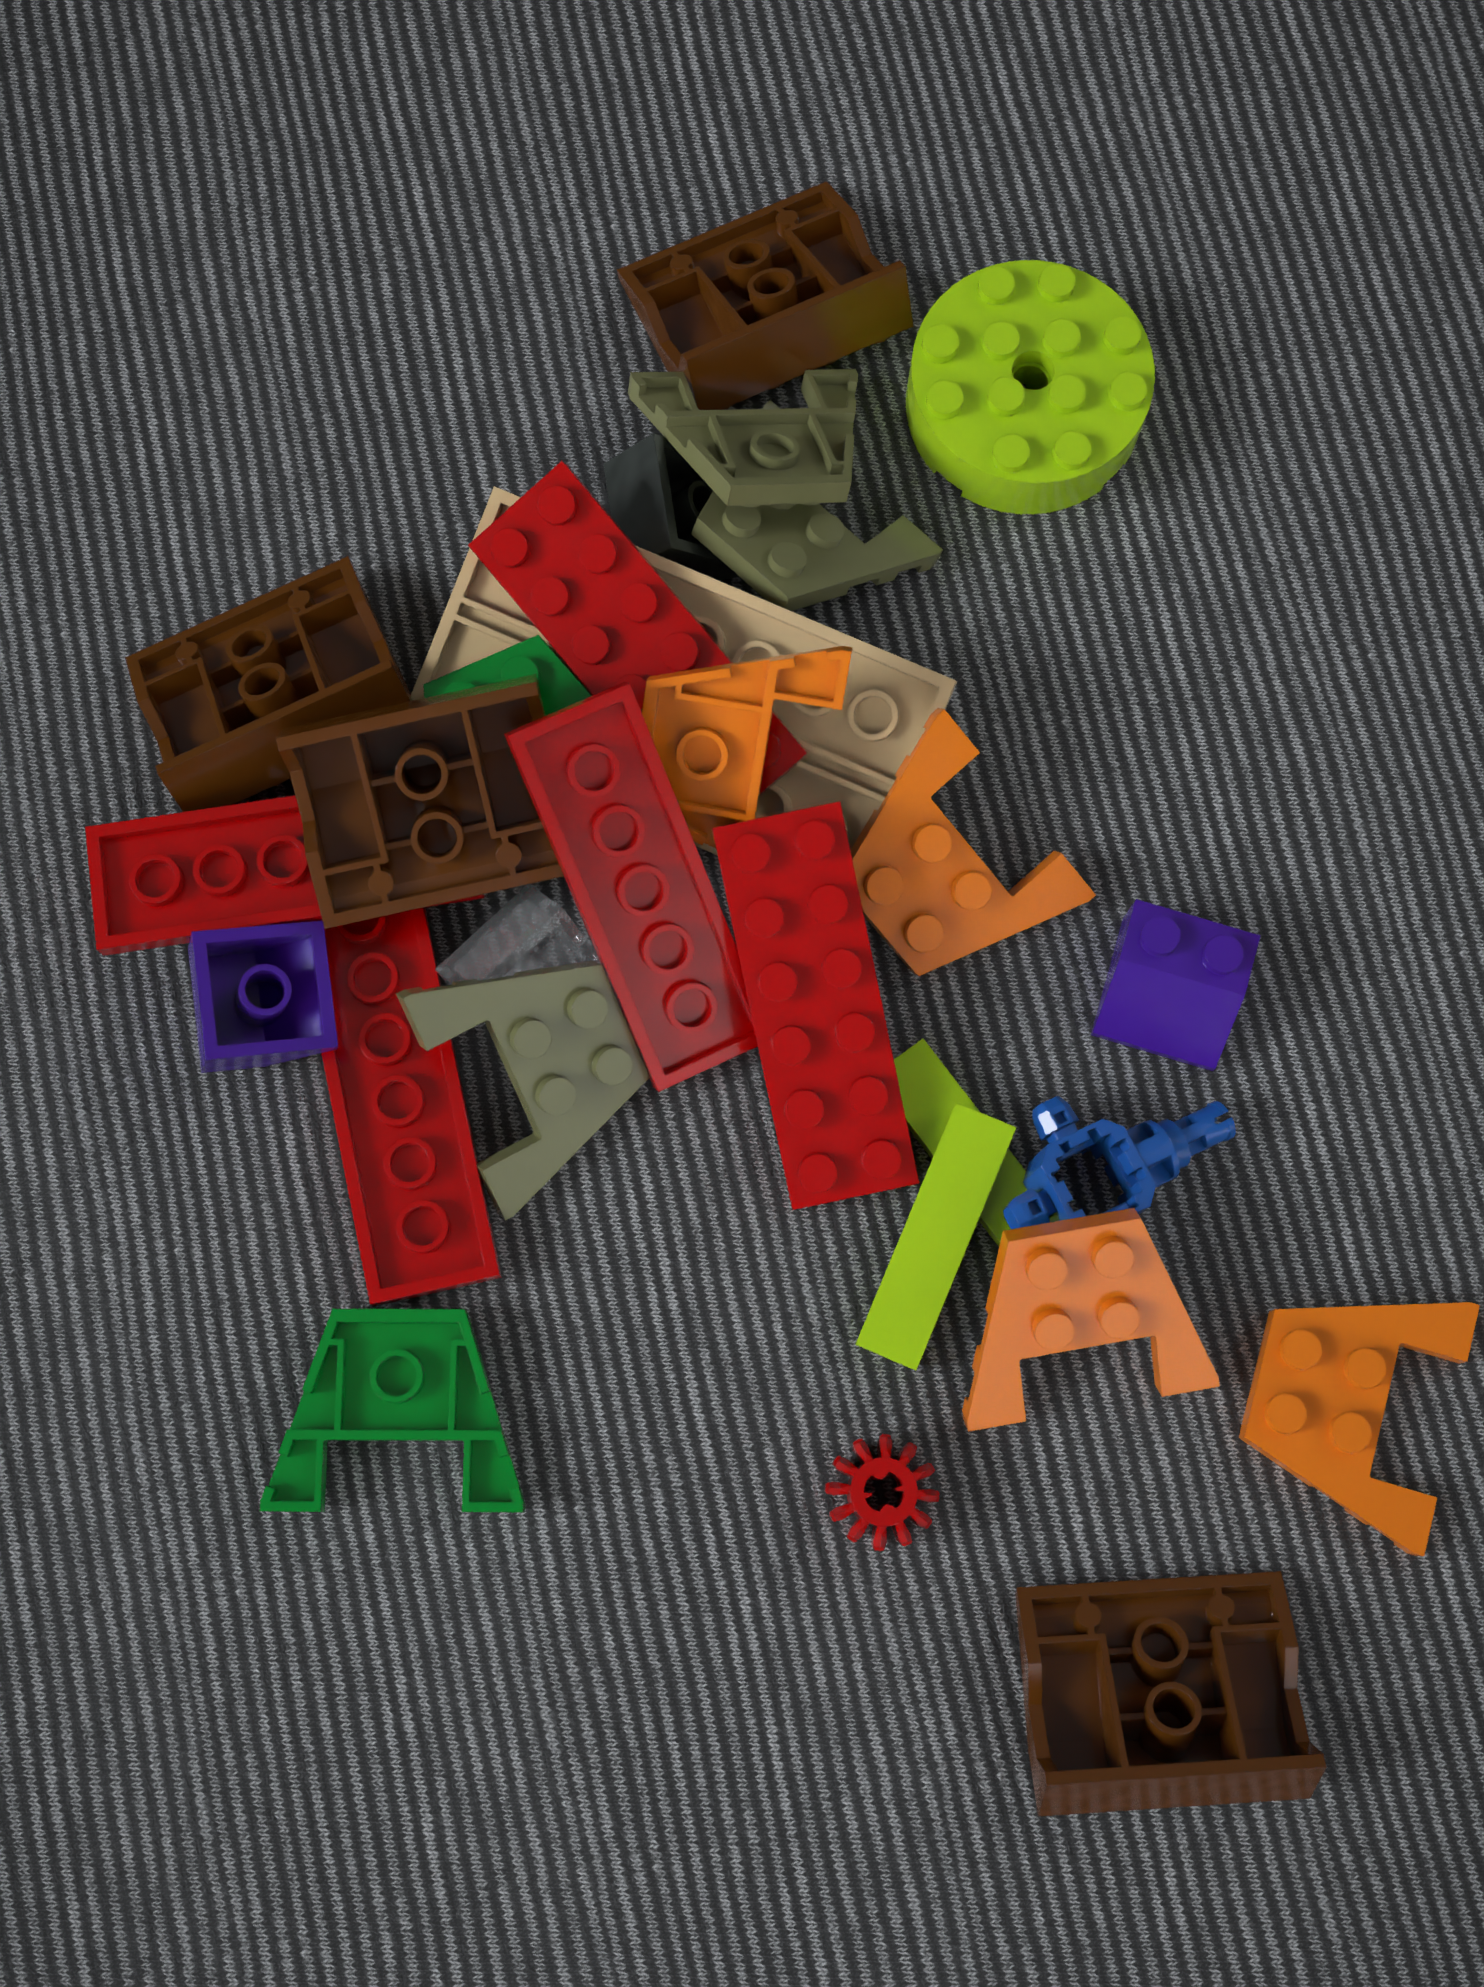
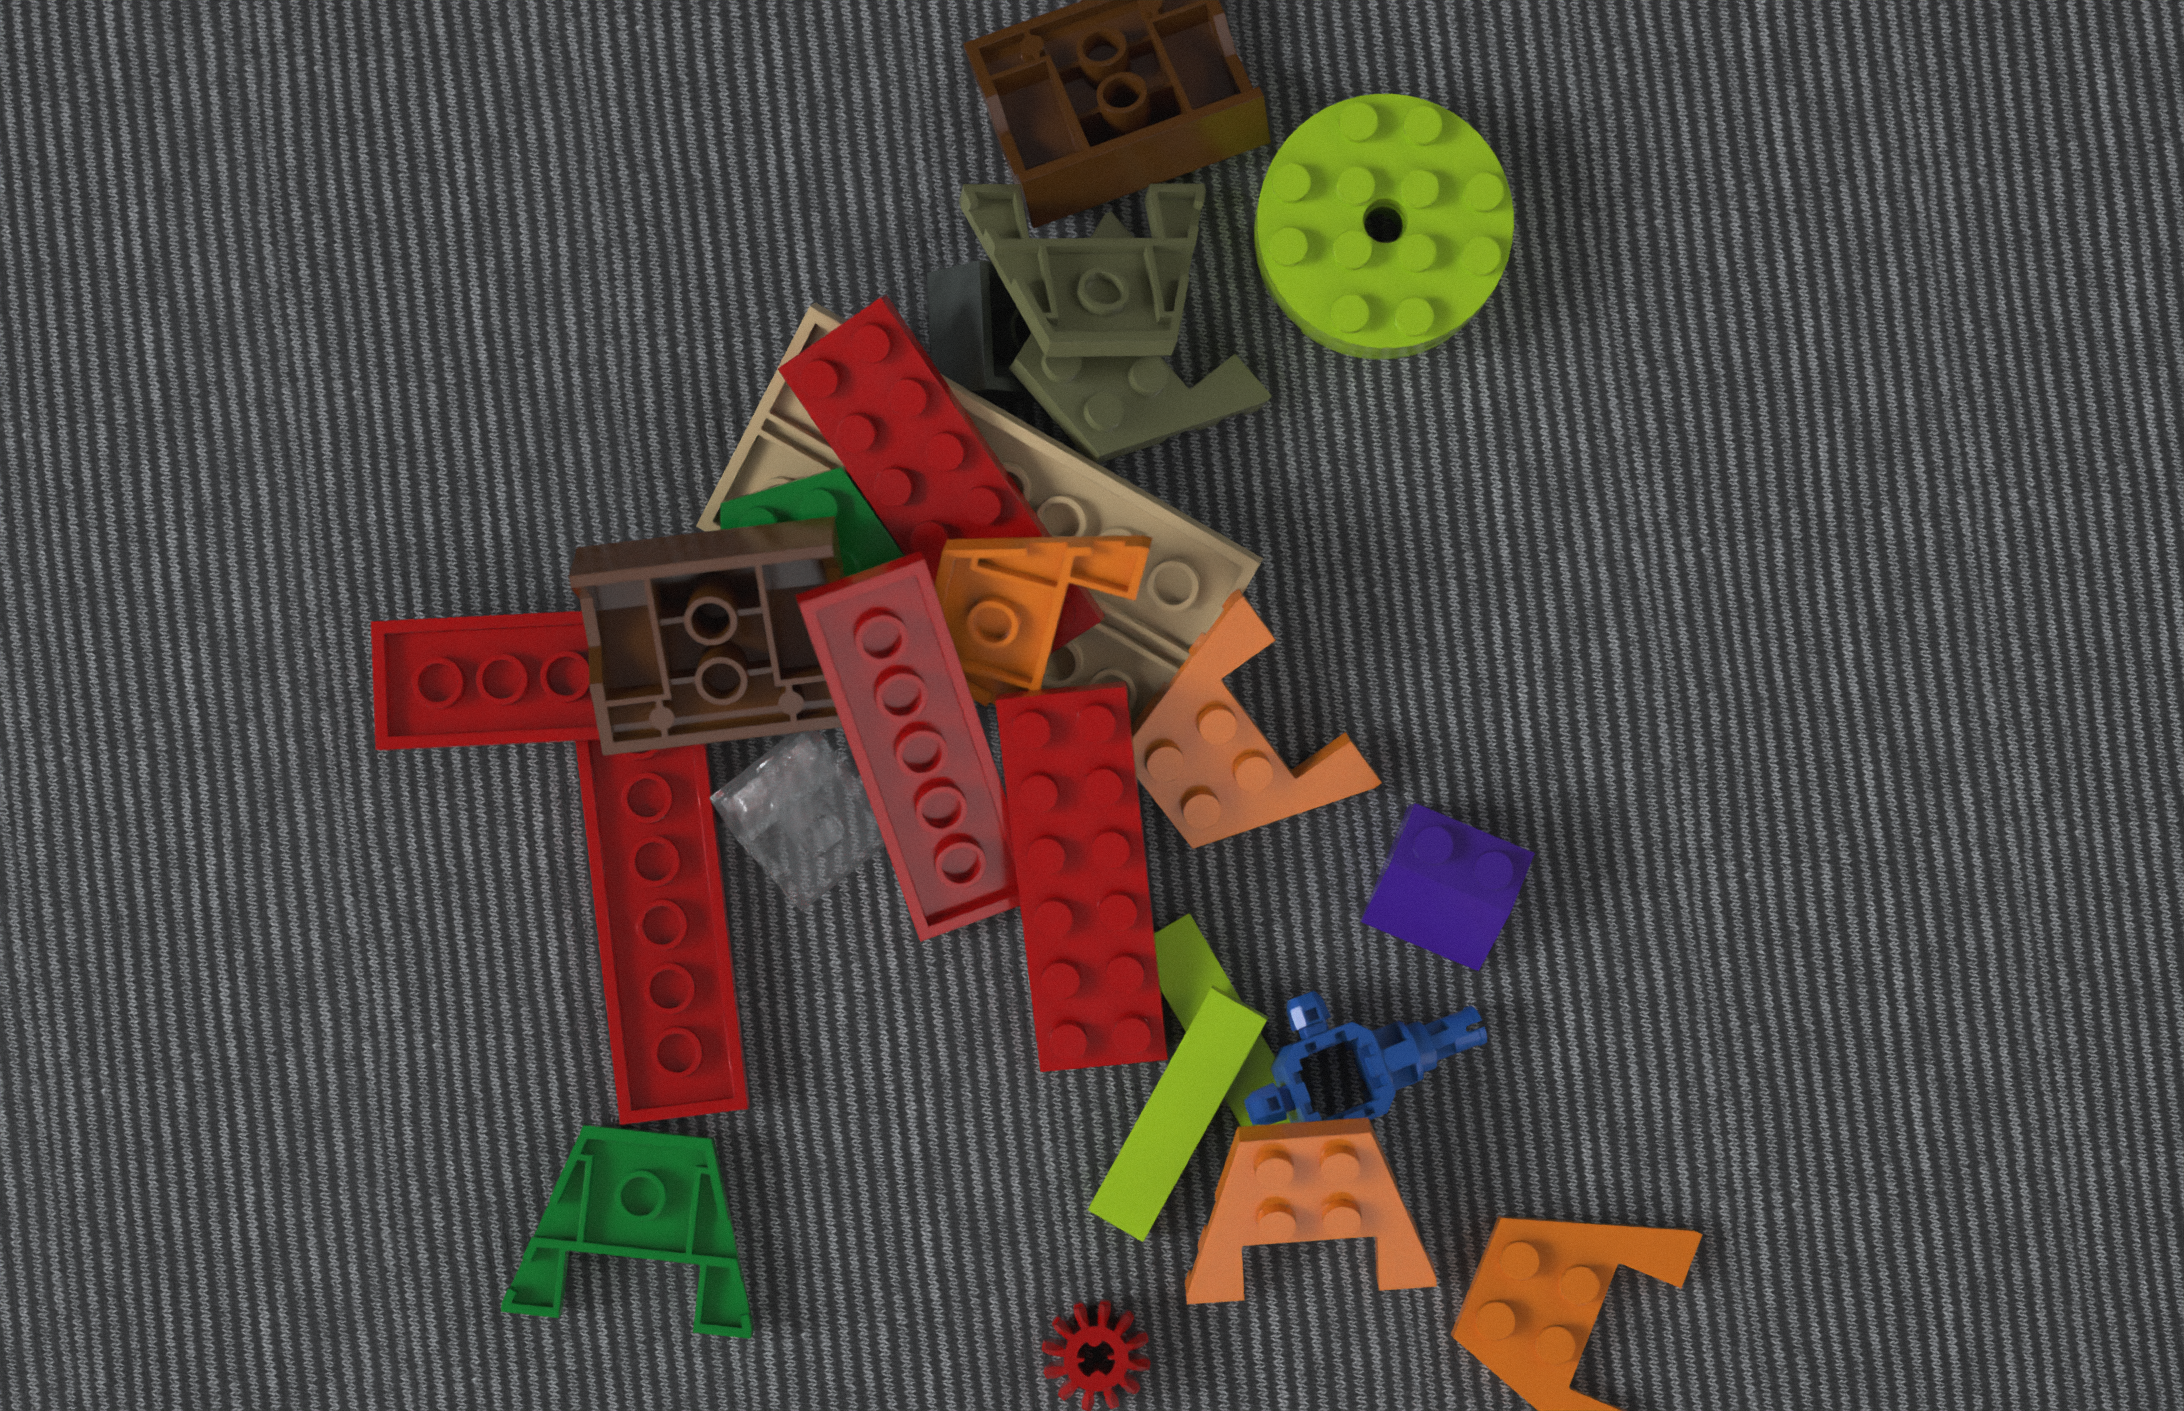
camera: 10 degrees right, 10 degrees up
(259, 668) = (559, 472): reddish brown piece -> none
(261, 995) = (536, 809): dark purple slope -> none
(561, 1051) = (827, 894): olive wing -> none

